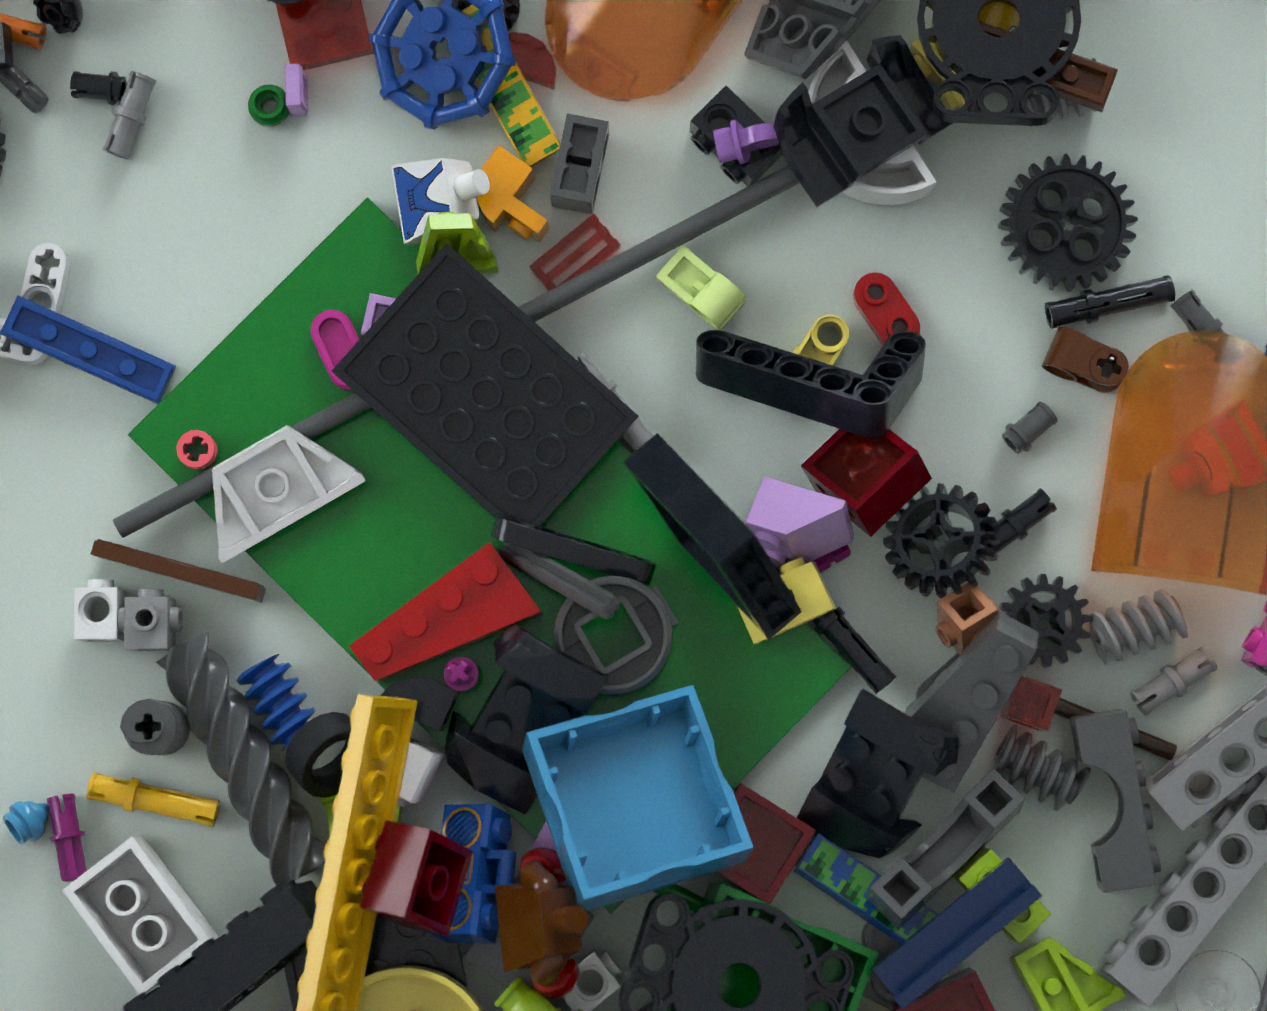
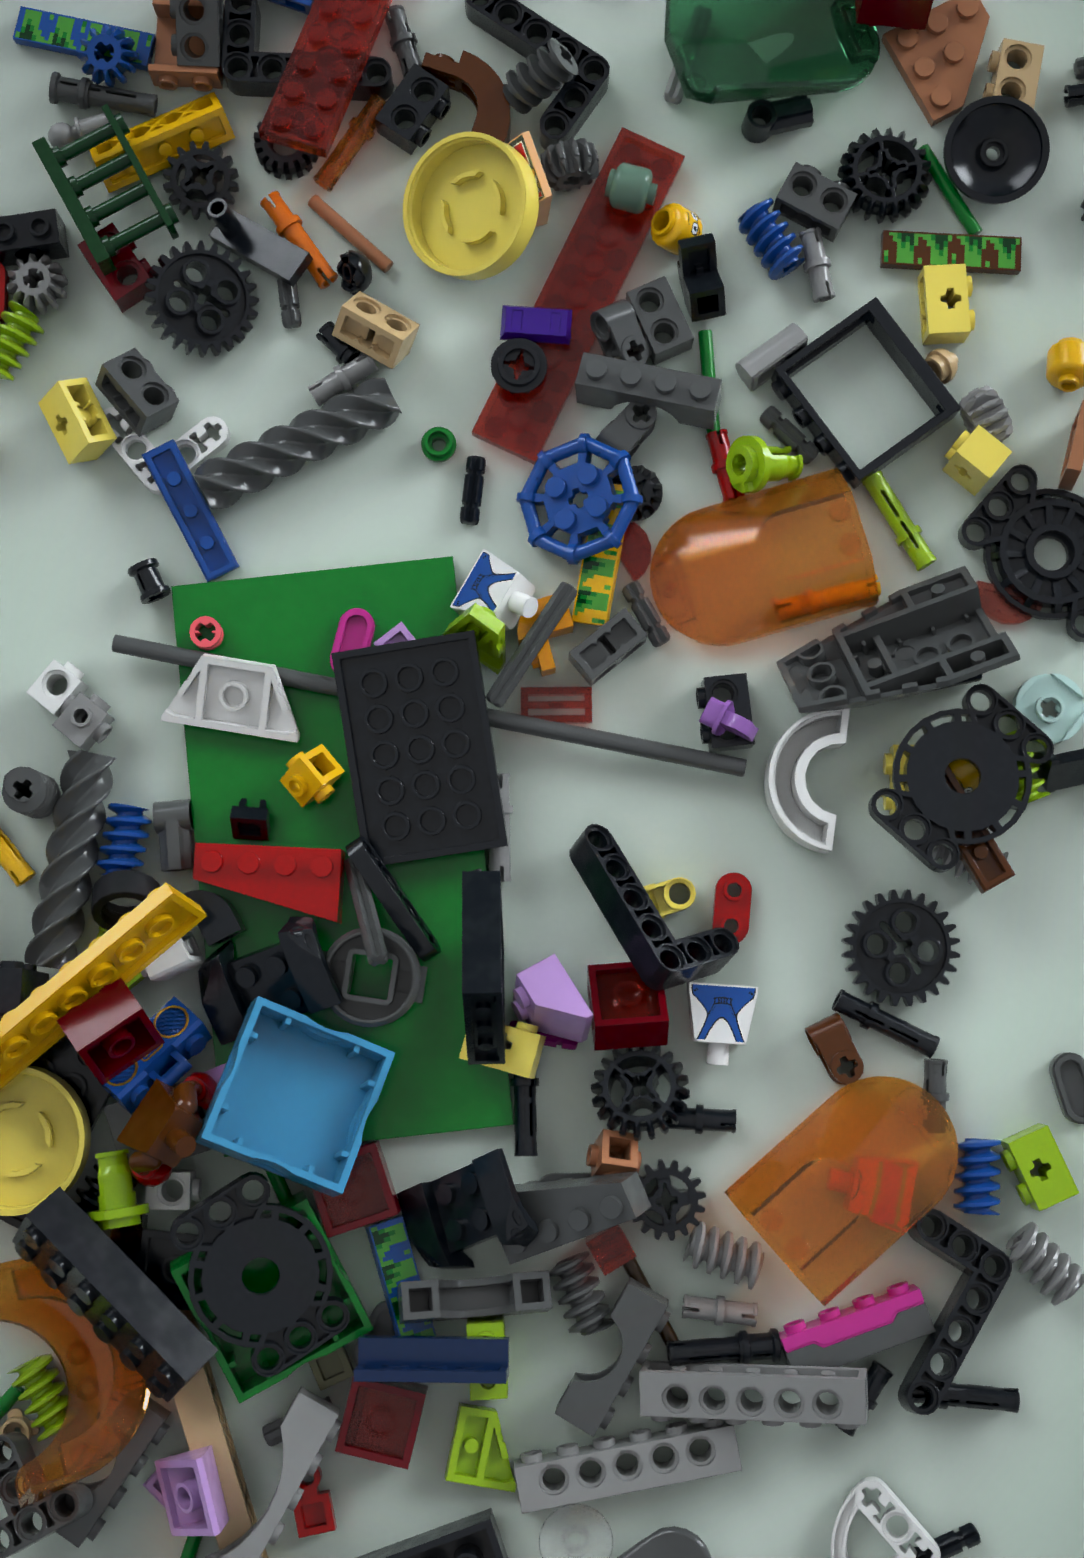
camera: 35 degrees right, 0 degrees up
(102, 446) = (149, 581): none -> black bush
(123, 45) = (375, 329): none -> tan brick
(129, 220) = (286, 448): none -> dark grey piece
(178, 570) = (131, 702): reddish brown tile -> none
(296, 90) = (463, 448): lavender tile -> none
(314, 652) = (174, 825): none -> dark grey piece
(335, 122) = (472, 490): none -> black axle
(383, 588) = (250, 822): none -> black tile
(405, 499) = (311, 775): none -> yellow brick
(461, 674) = (253, 920): magenta axle -> none
(509, 216) = (531, 644): none -> dark grey axle
(588, 106) = (646, 614): none -> dark grey axle
(701, 288) = (621, 793): yellowish green plate -> none
(858, 123) = (811, 770): black piece -> none
(957, 416) = (720, 1016): none -> torso
(1029, 428) = (762, 1063): dark grey pin -> none
(1220, 697) = (740, 1347): none -> black pin

